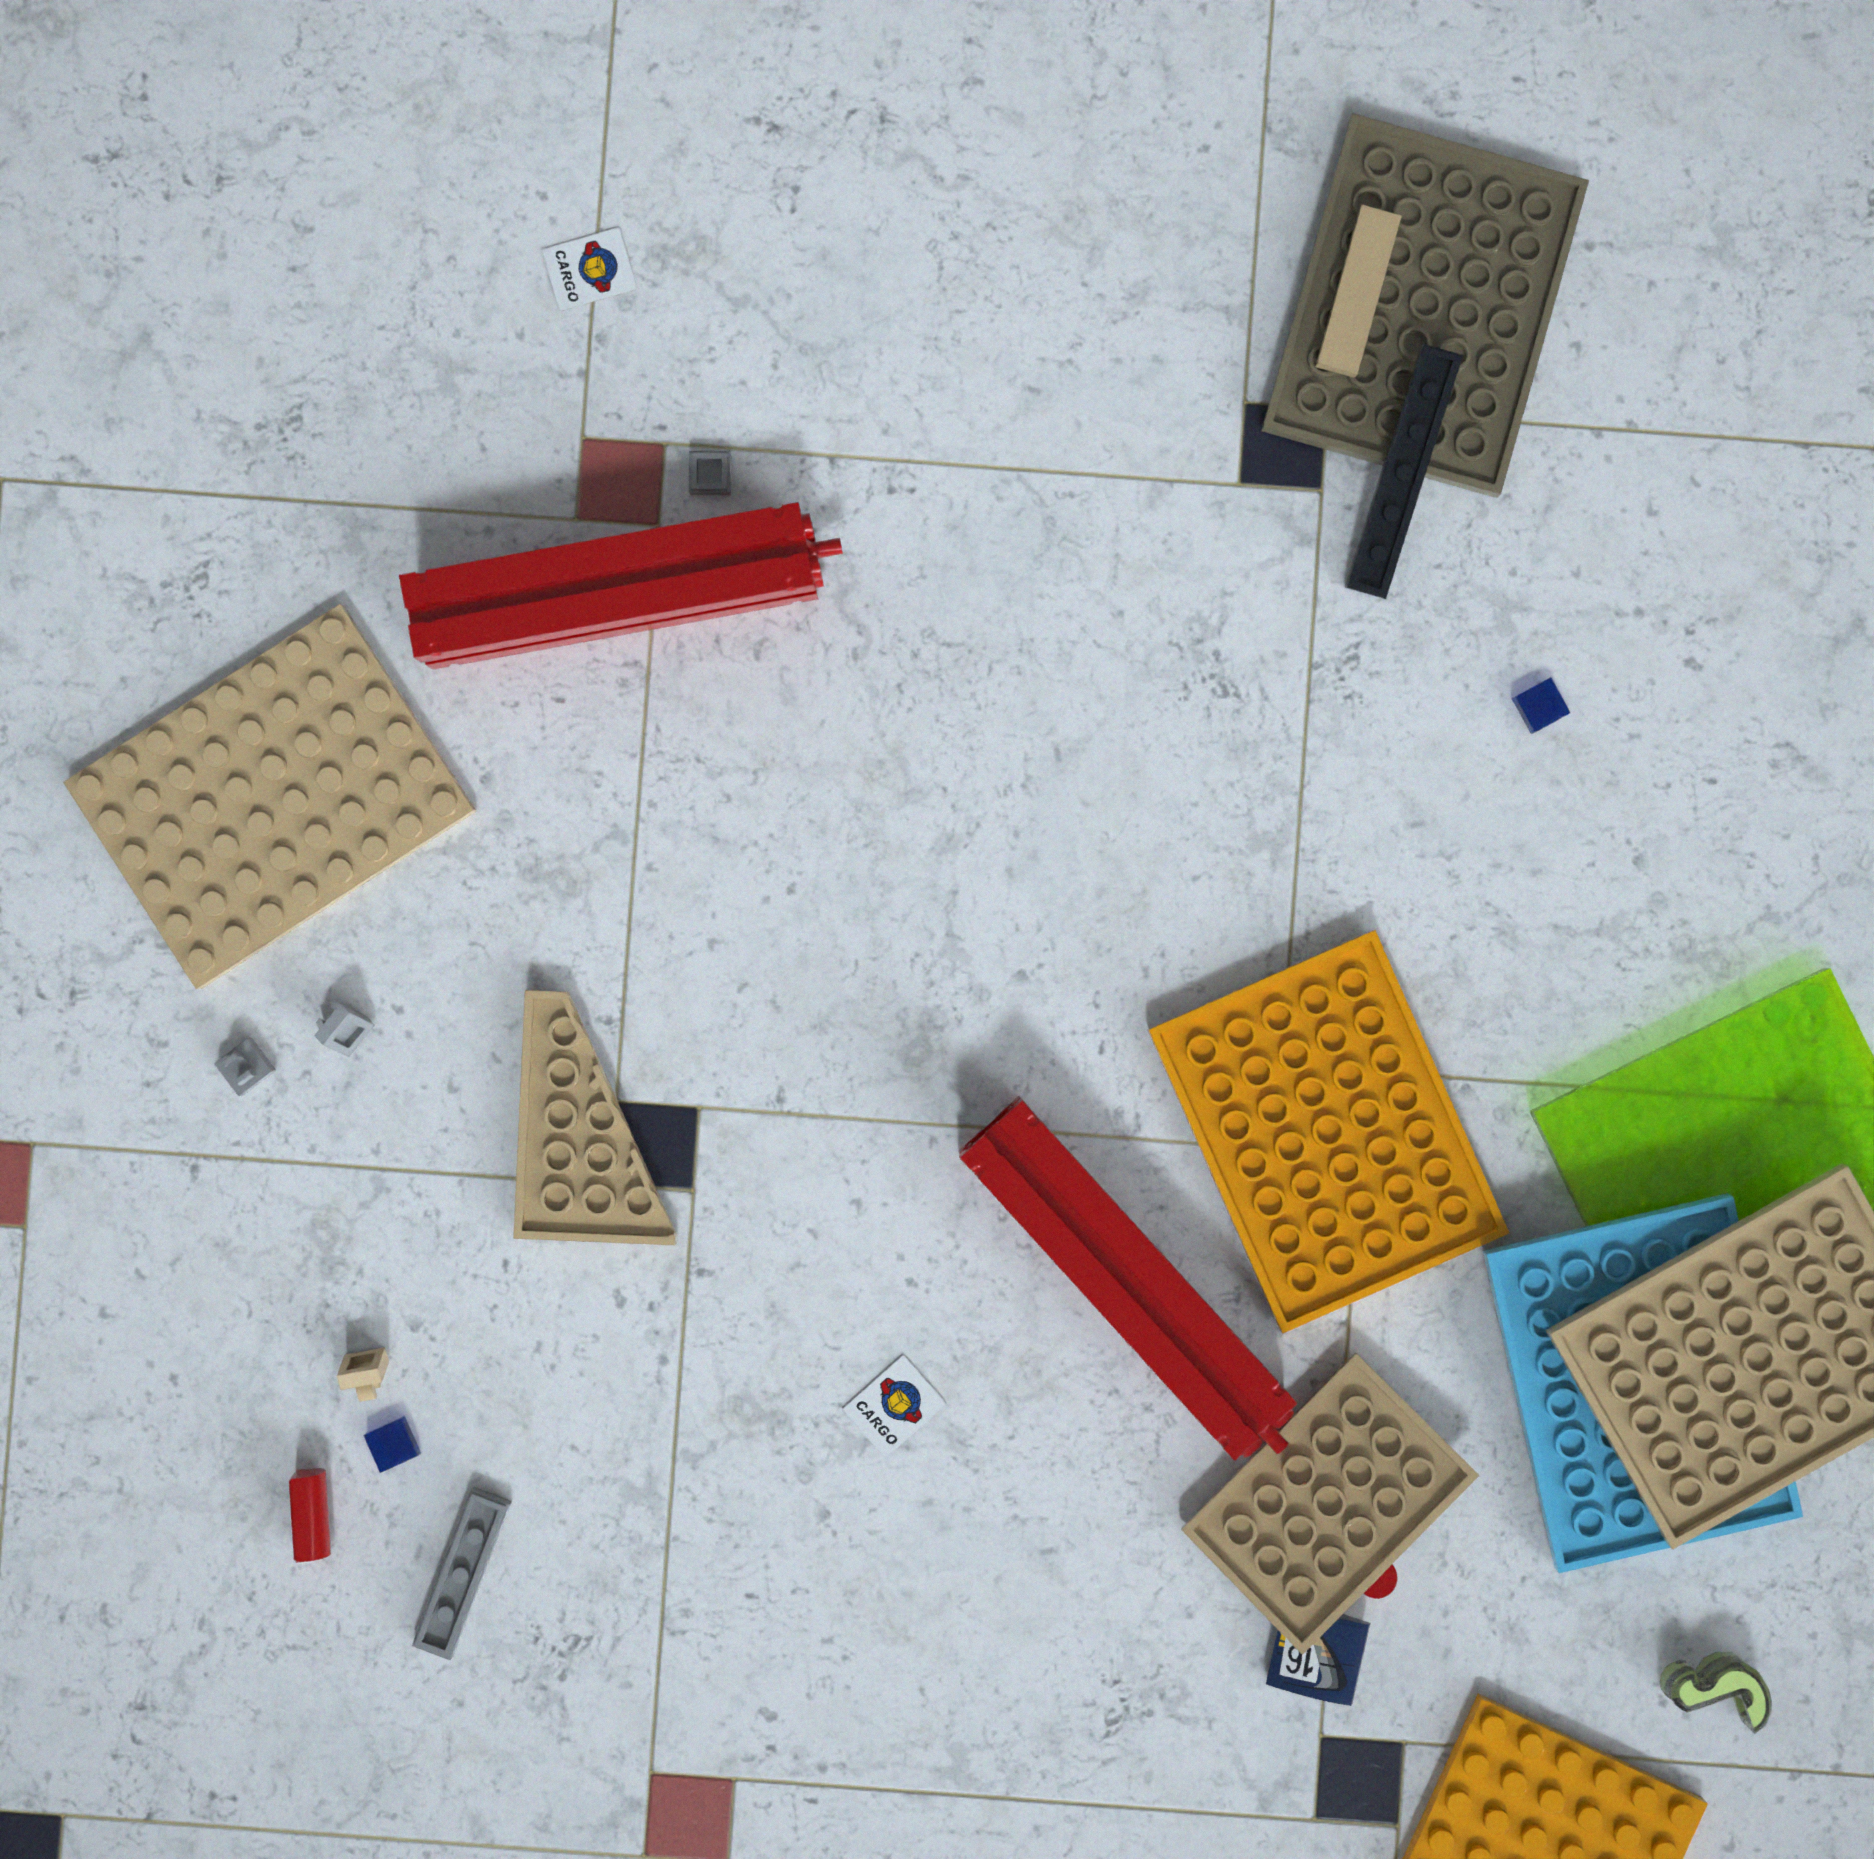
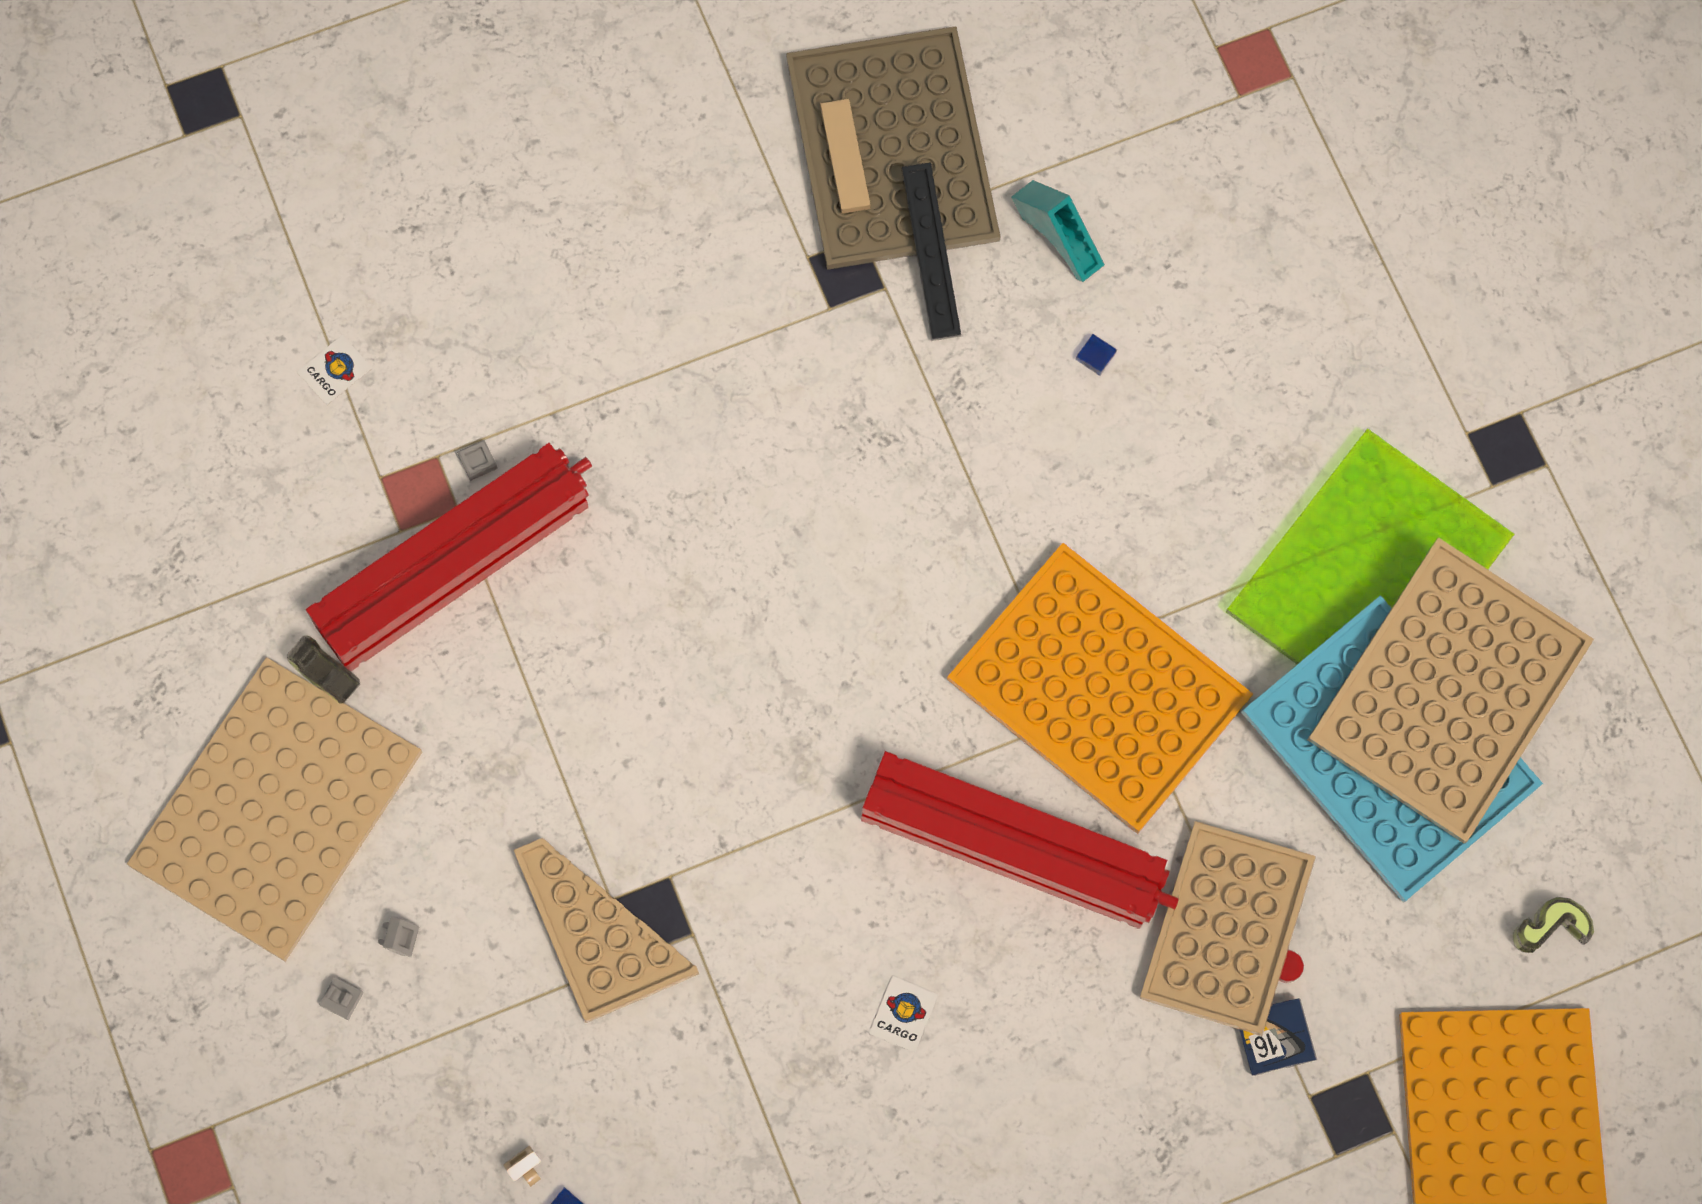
camera: 25 degrees left, 15 degrees down
(390, 640) = (322, 669): none -> clear smoke animal
(1586, 515) = (1061, 224): none -> teal arch

